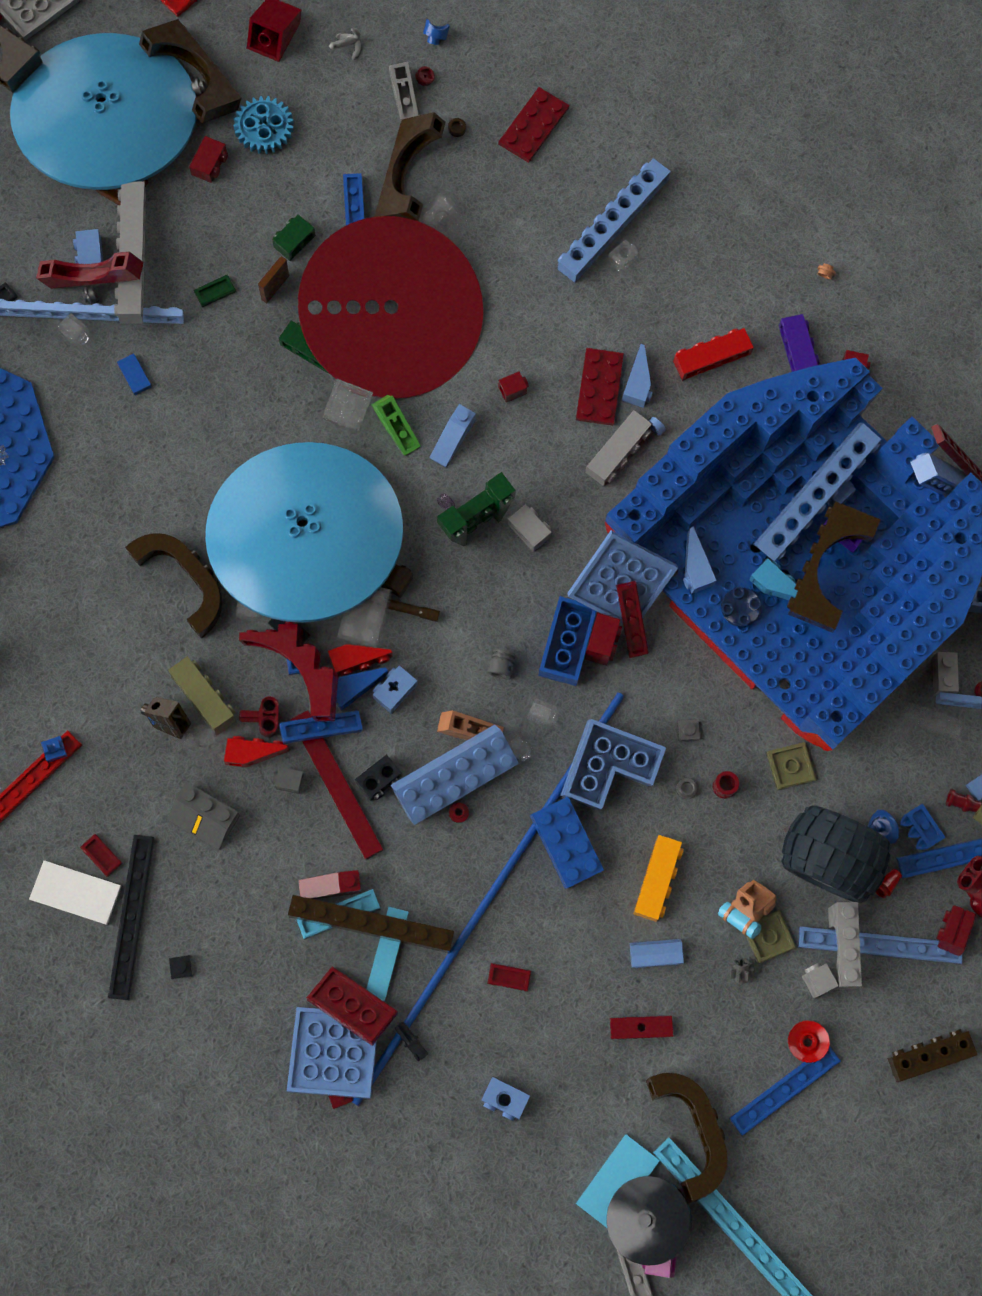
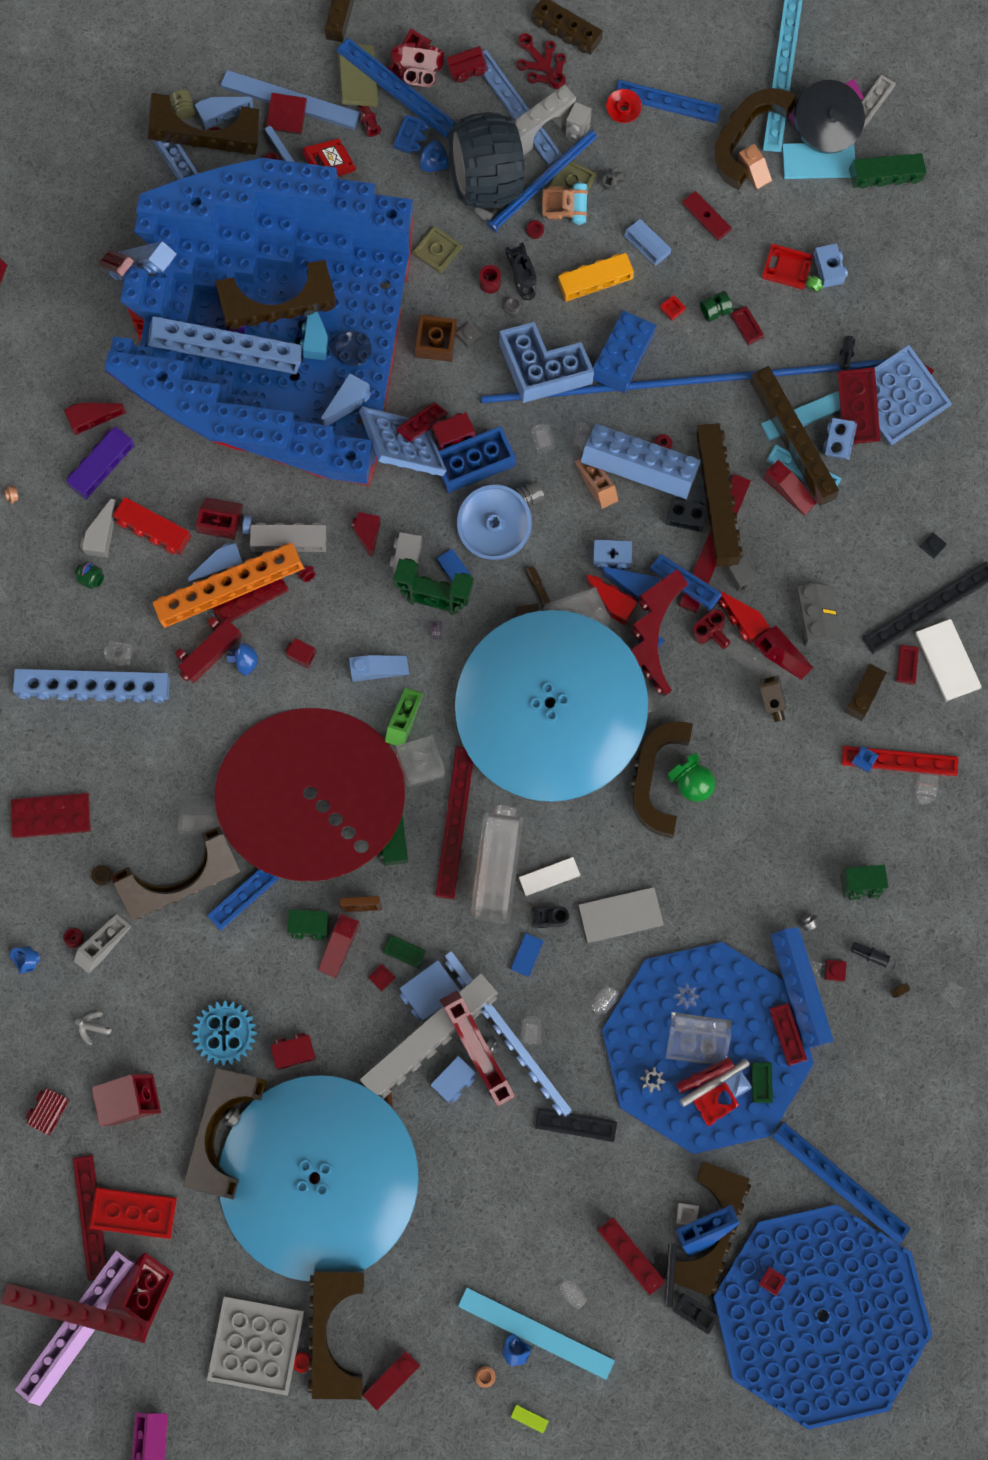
camera: 125 degrees left, 0 degrees up
(50, 400) = (603, 1000): none -> clear brick
(102, 465) = (620, 915): none -> light grey tile
(107, 799) = (865, 692): none -> dark brown slope
(148, 408) = (548, 916): none -> black piece
(152, 597) = (694, 780): none -> green tile
(167, 283) = (426, 990): none -> medium blue brick
(178, 436) = (549, 876): none -> white tile
(199, 756) = (782, 652): none -> dark red slope
(202, 695) = (735, 684): olive brick -> none
(209, 261) = (382, 977): none -> dark red plate
(209, 386) = (497, 866): none -> clear brick
(258, 247) = (339, 945): none -> dark red slope
(276, 396) = (454, 825): none -> dark red tile
(331, 964) = (845, 439): none -> medium blue brick
(373, 815) = (718, 495): none -> dark brown brick
(487, 558) = (452, 564): none -> blue tile
(499, 614) = (494, 522): none -> medium blue dish
(499, 1070) = (814, 283): none -> bright green plate
(532, 1063) = (791, 267): none -> red container
(543, 342) = (244, 657): none -> blue piece
(549, 953) = (716, 306): none -> dark green wheel
(555, 1234) = (887, 170): none -> dark green brick
(570, 321) = (209, 652): none -> dark red brick
(575, 511) = (366, 530): none -> dark red slope
(576, 923) = (672, 308): none -> red plate
(577, 441) = (307, 574): none -> dark red plate
(593, 428) = (222, 593): none -> orange brick
(654, 1112) = (756, 166): none -> nougat slope
(679, 408) = (219, 518): none -> dark red slope
(702, 817) = (523, 270): none -> black piece
(704, 695) = (436, 338): none -> reddish brown brick
(707, 279) = (89, 575): none -> dark green head
(737, 310) = (99, 533): none -> light grey slope
(746, 865) = (535, 229): none -> dark red tile
(788, 910) = (541, 181): none -> blue axle
(908, 1006) = (542, 64): none -> dark red plant
(948, 741) = (330, 154): none -> container

